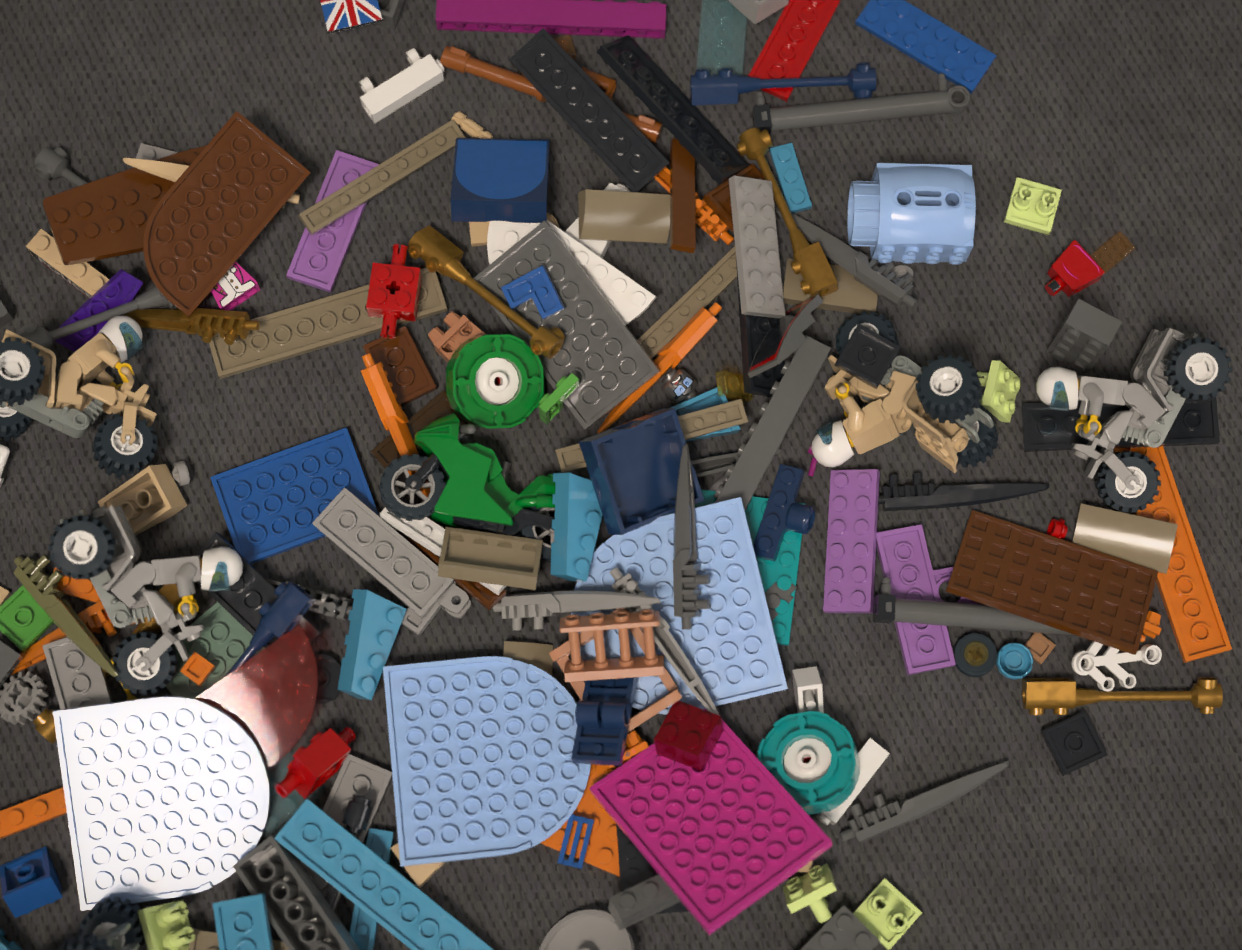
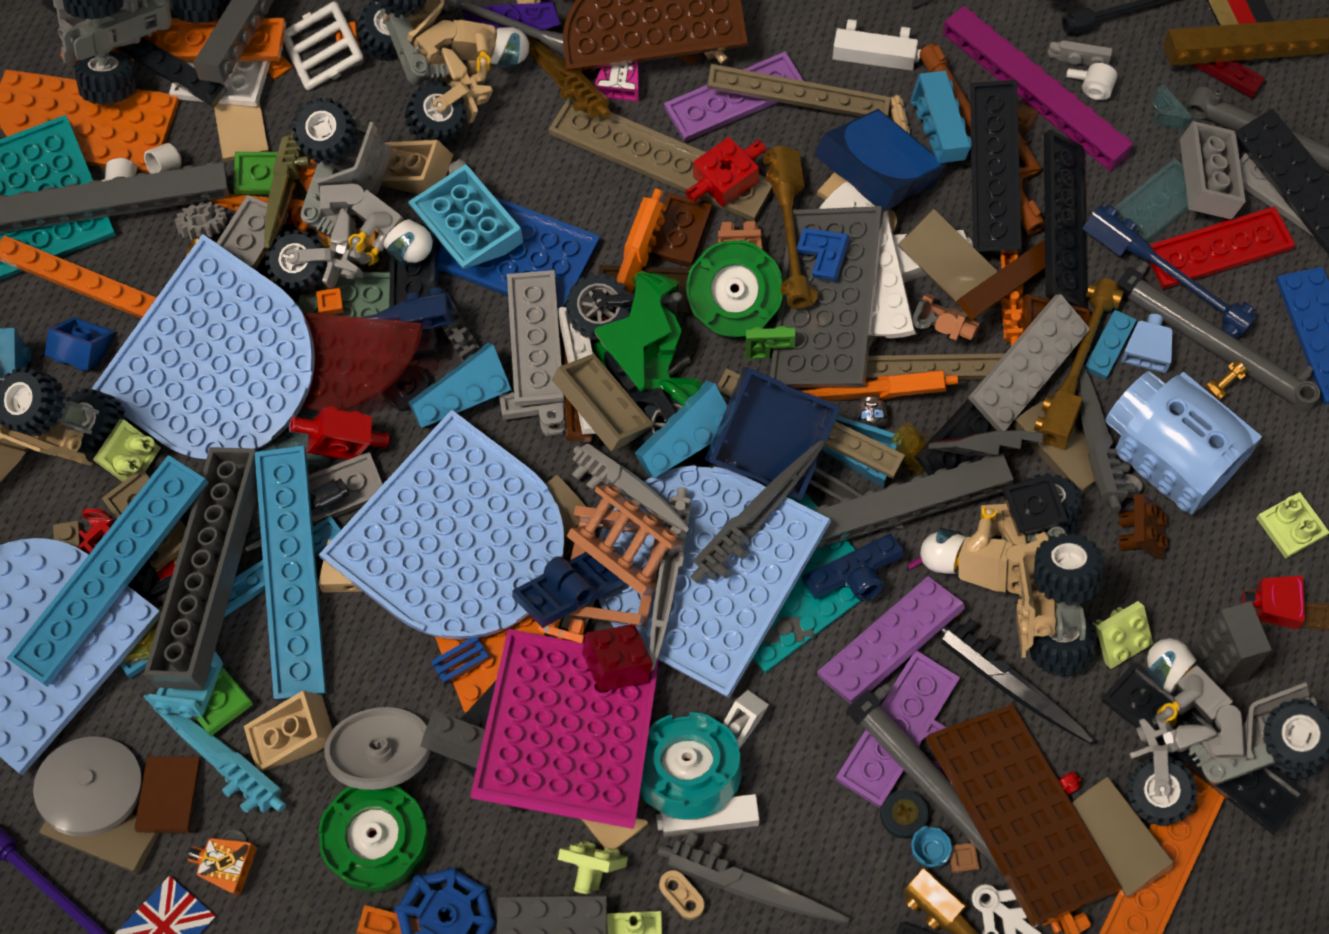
camera: 50 degrees right, 10 degrees down
(238, 508) = (467, 219): none -> medium azure slope
(511, 105) = (941, 116): none -> dark azure wedge
(664, 263) = (944, 319): none -> nougat hips
(819, 154) = (1150, 345): none -> light blue torso
(886, 853) = (682, 895): none -> tan plate
(893, 148) = (1217, 389): none -> pearl gold bar
(941, 290) = (1149, 527): none -> reddish brown plate

